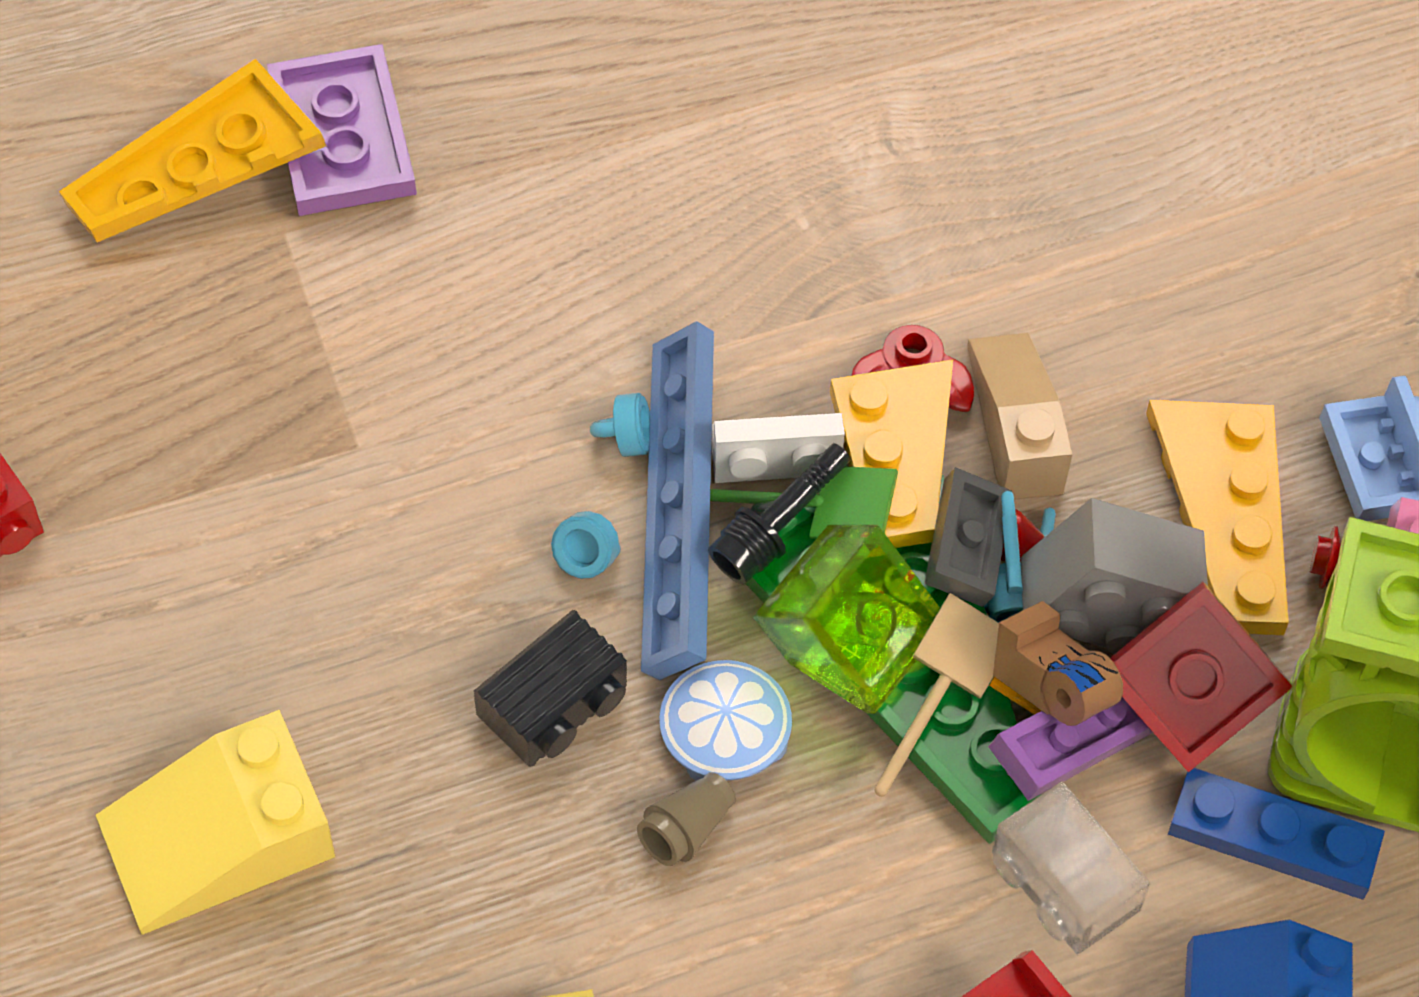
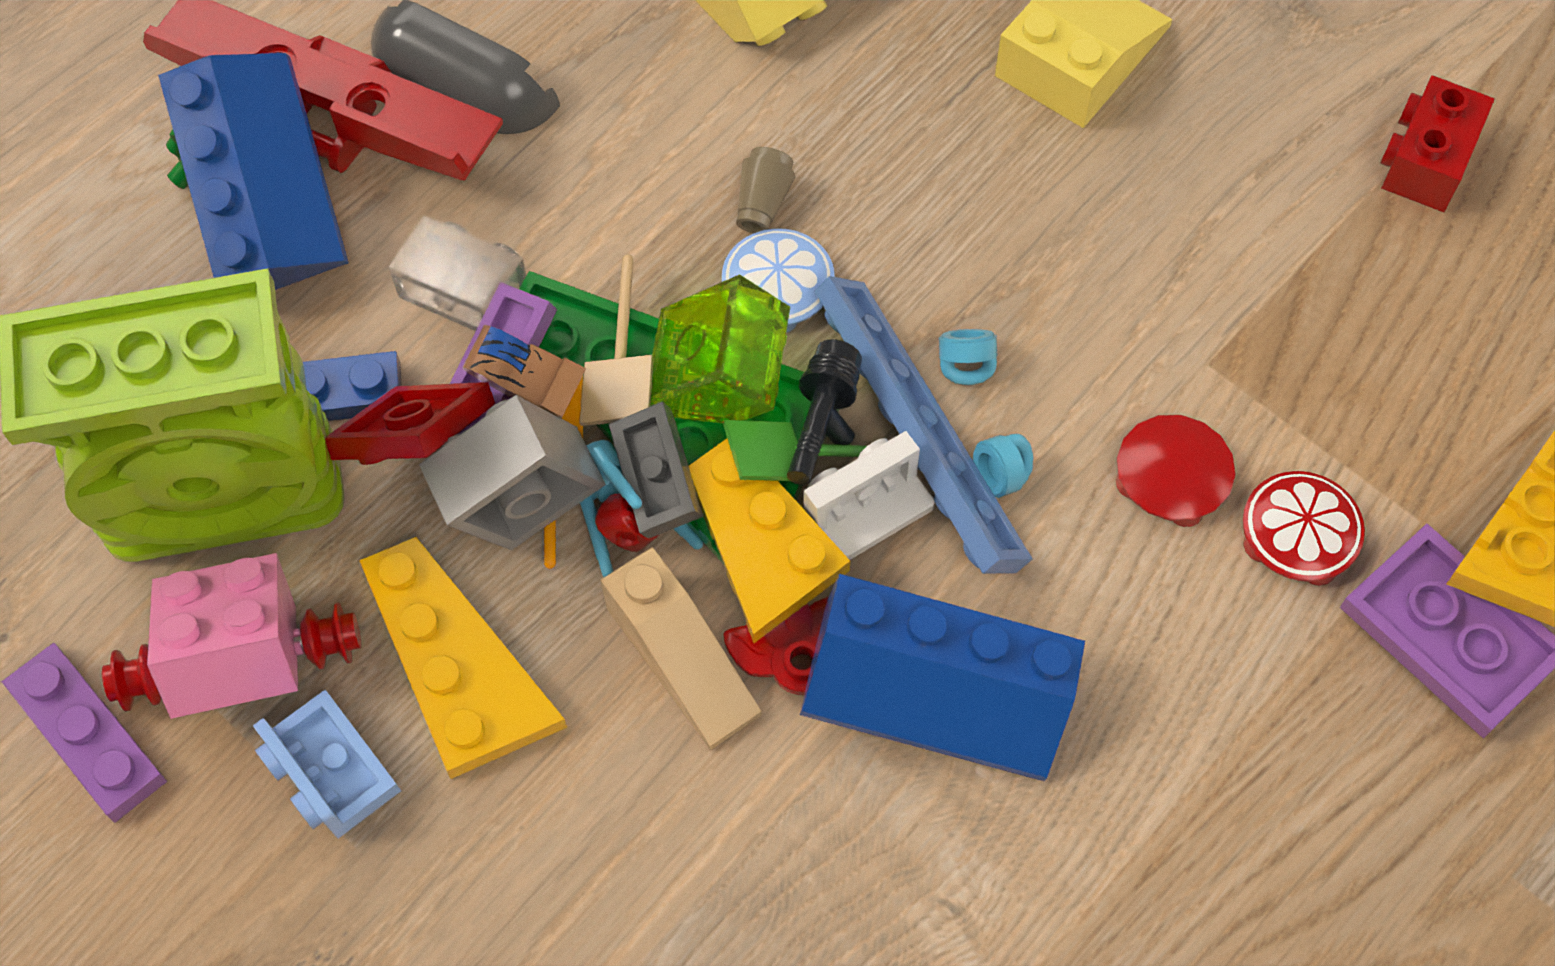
camera: 155 degrees right, 5 degrees up
(394, 264) = (1303, 527): none -> dish
(467, 361) = (1175, 468): none -> red dish
(552, 689) = (918, 226): black brick -> none
(800, 274) = (942, 677): none -> blue slope

